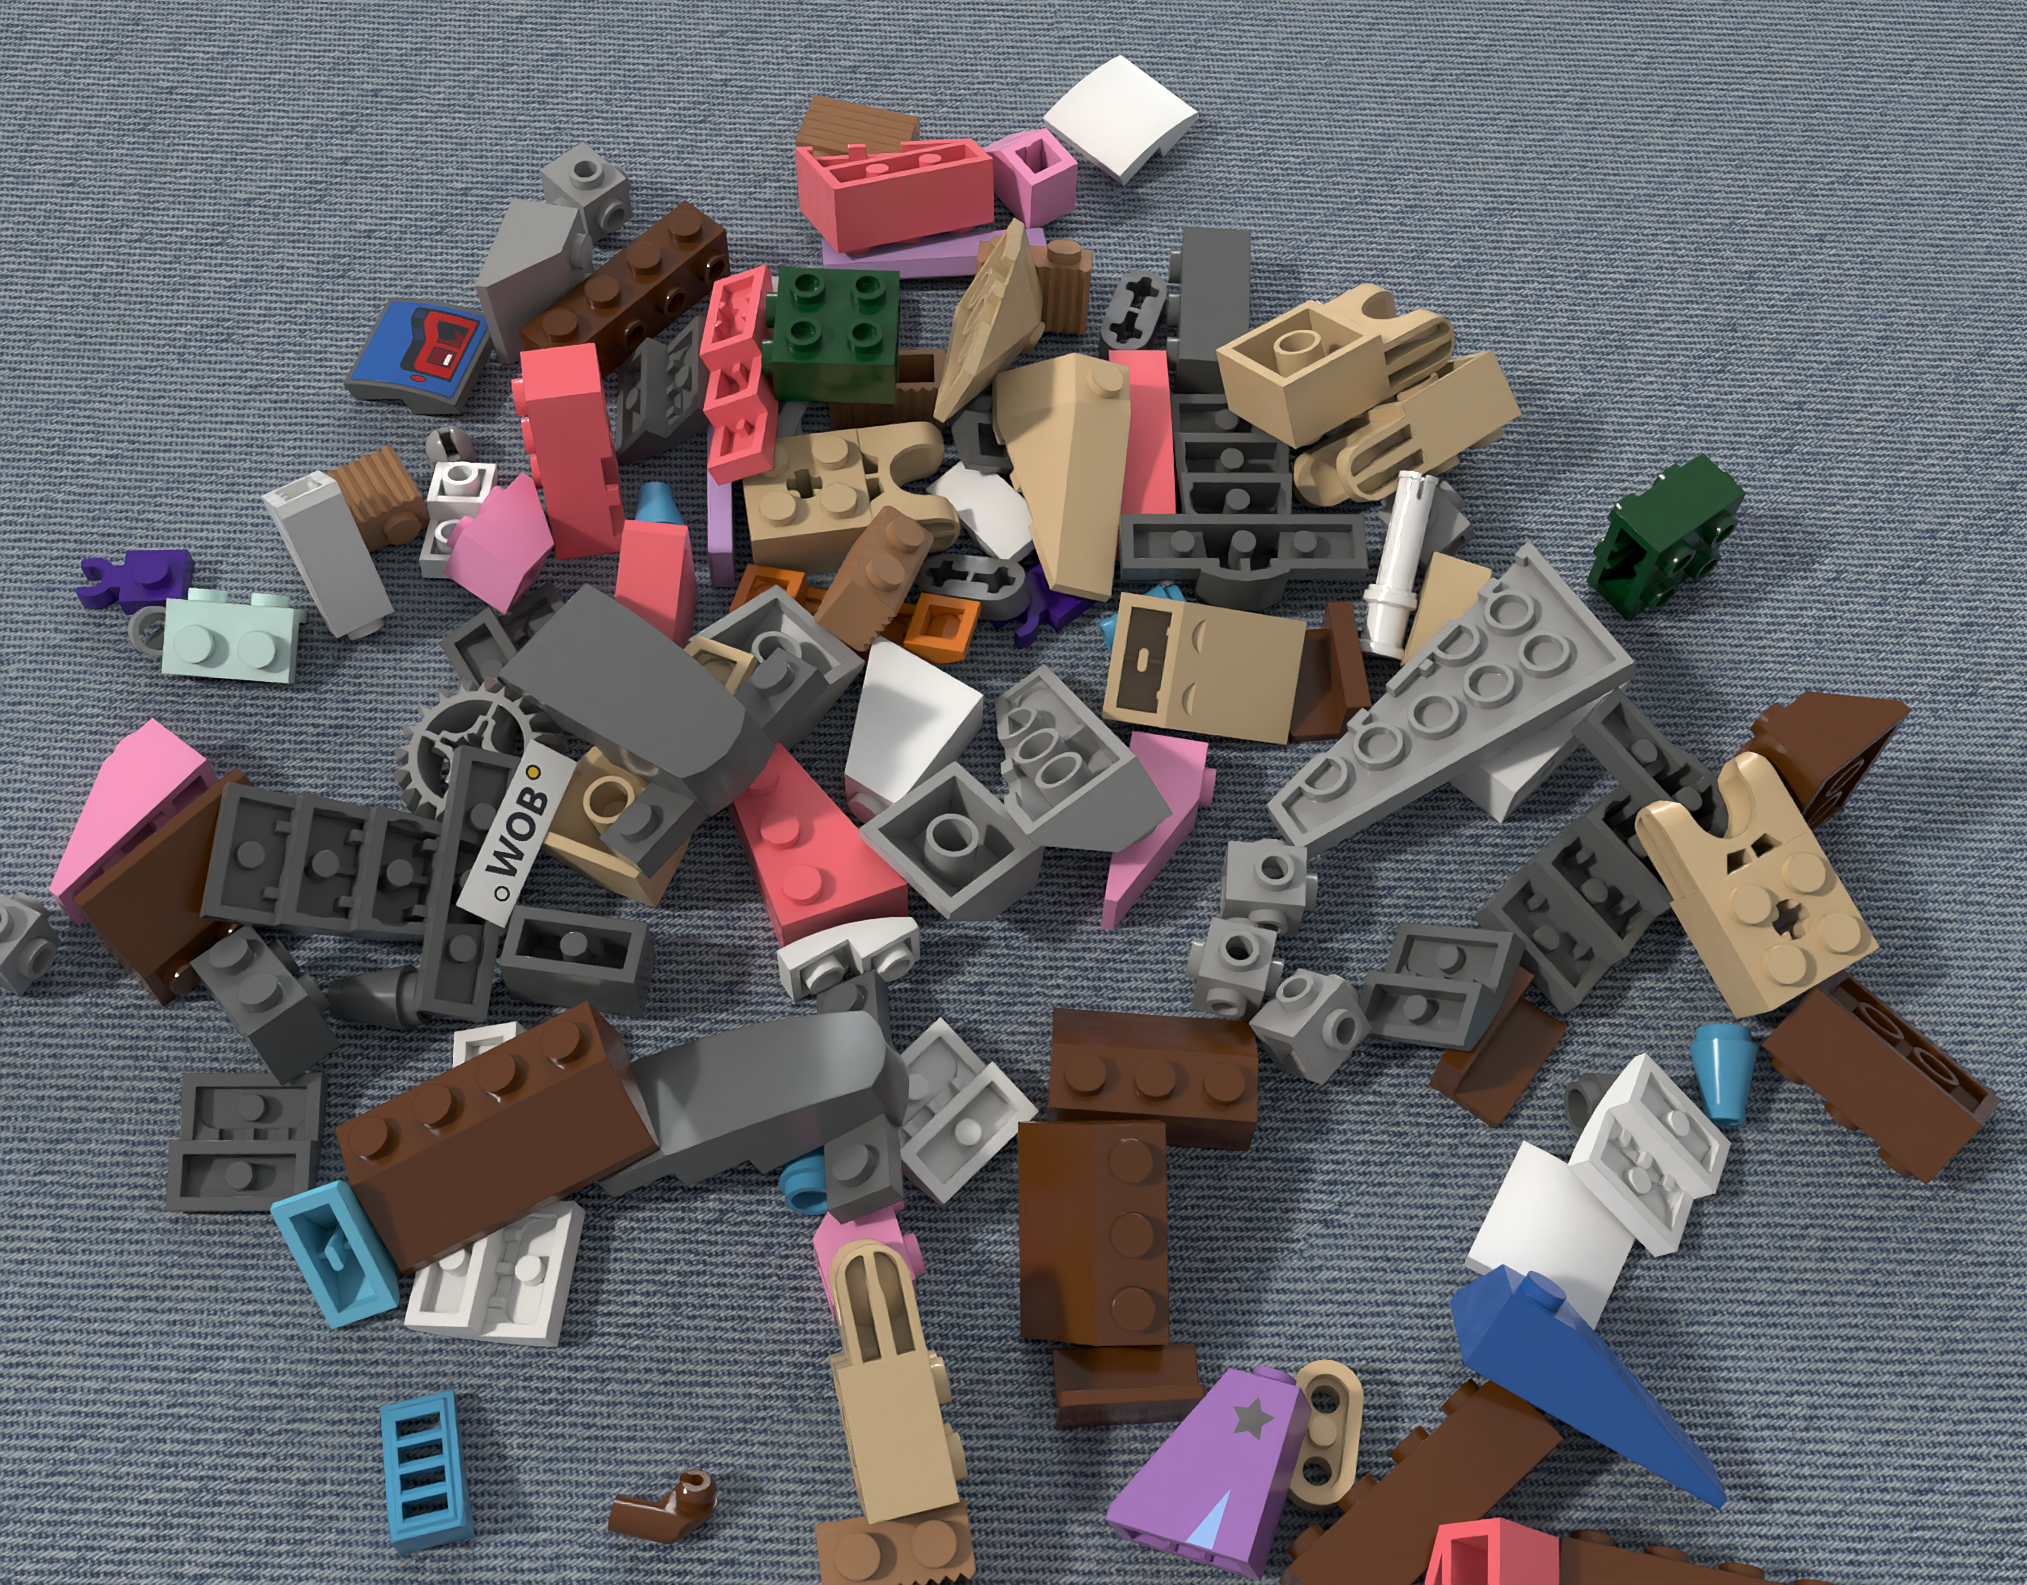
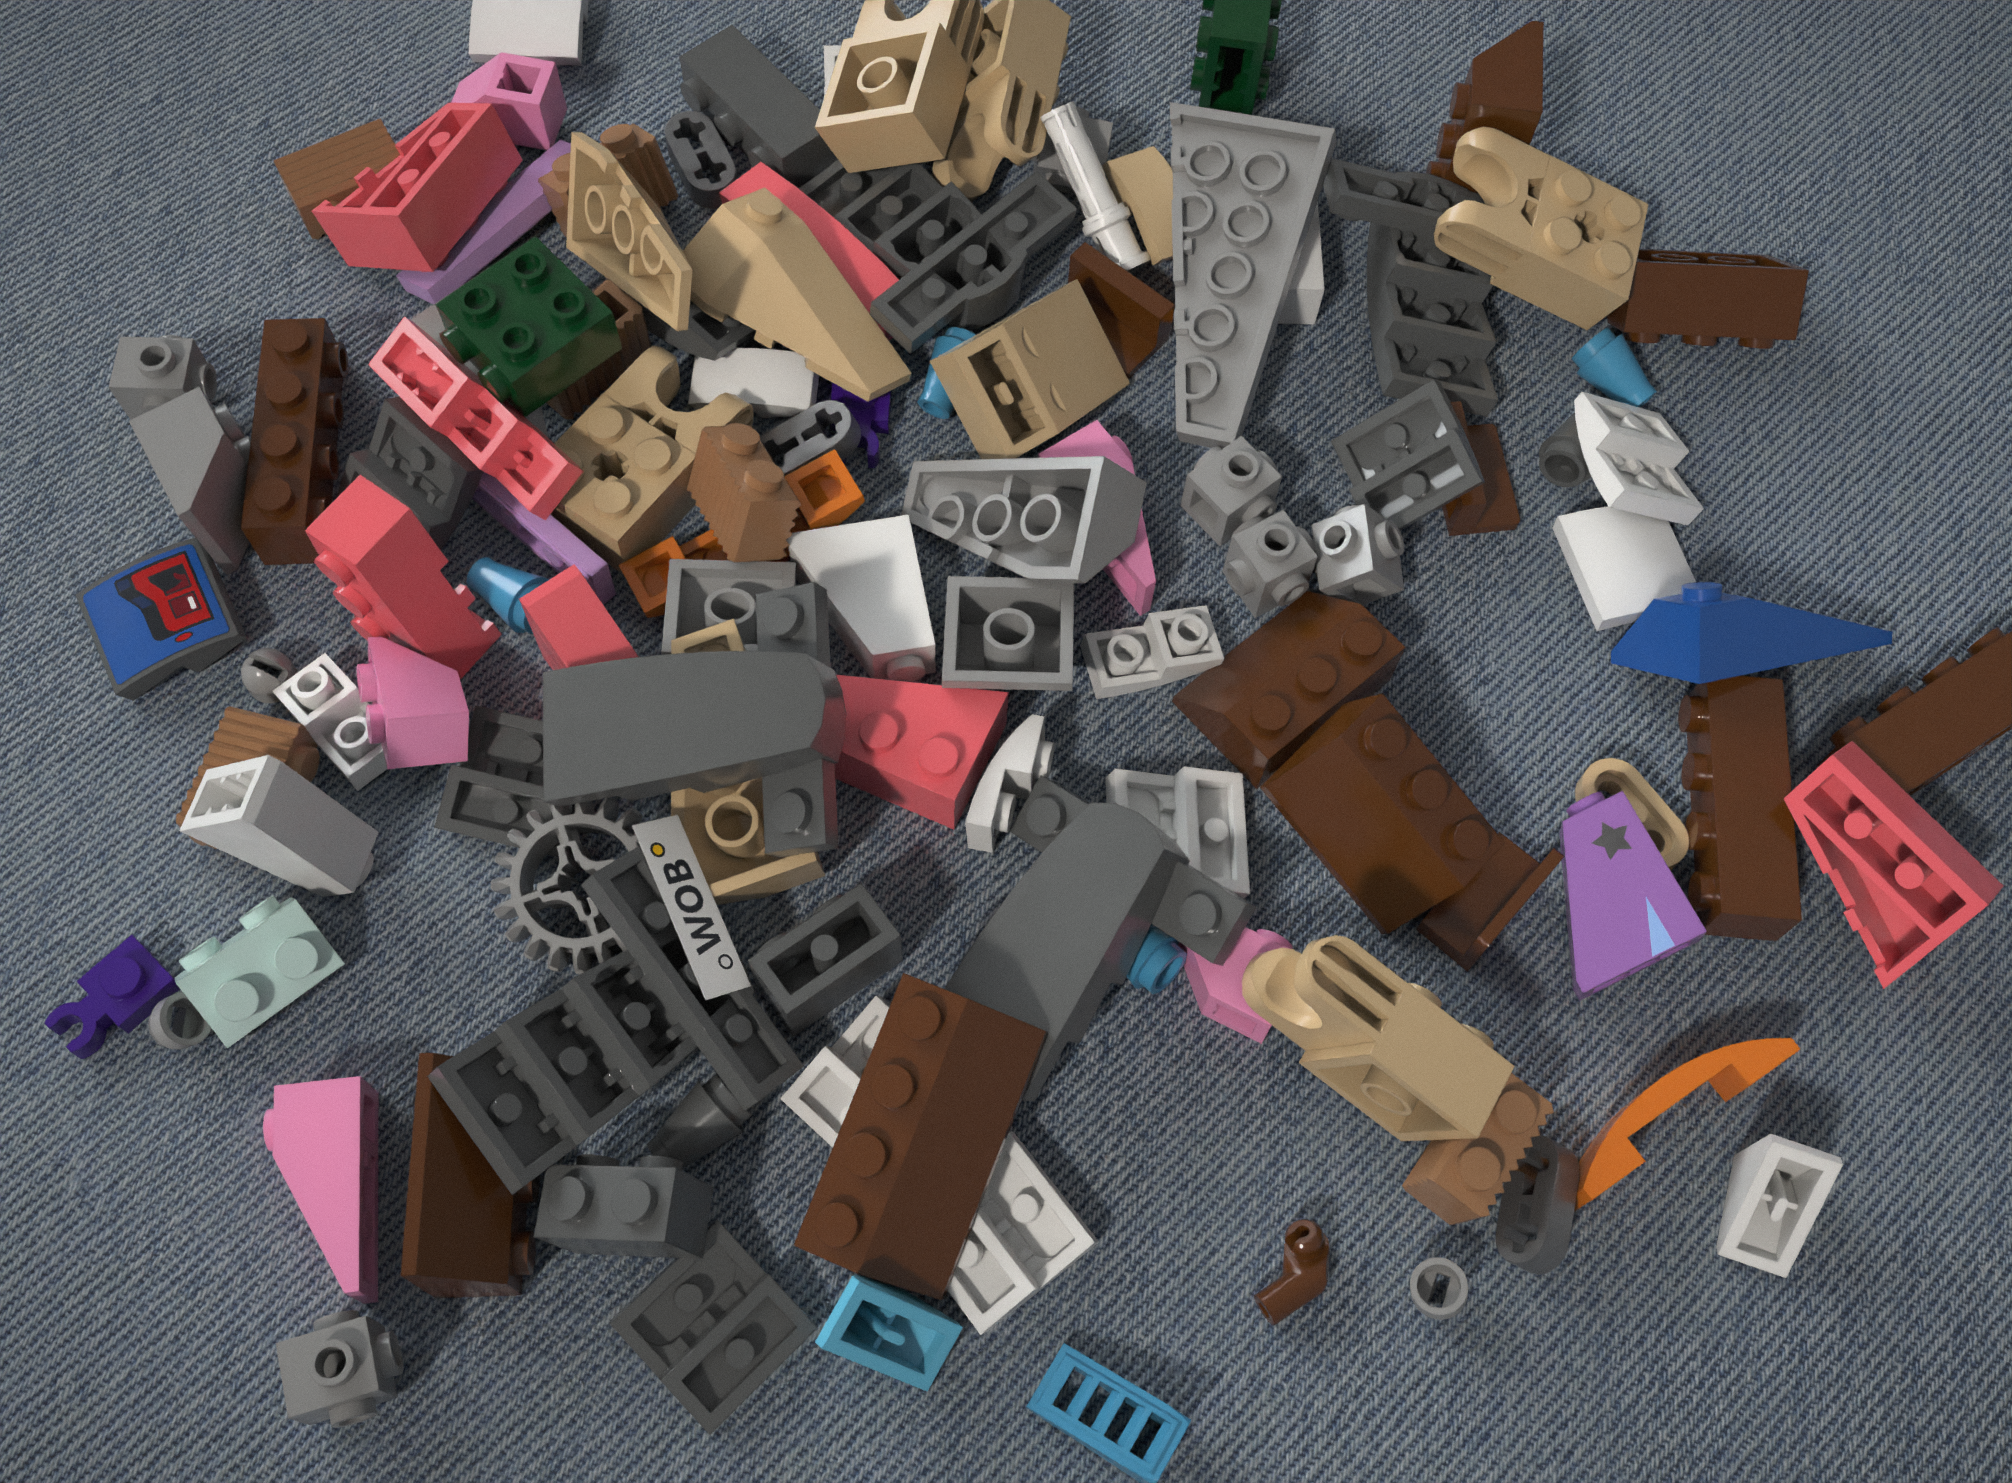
camera: 45 degrees left, 5 degrees up
(1073, 963) = (1151, 655): none -> white slope

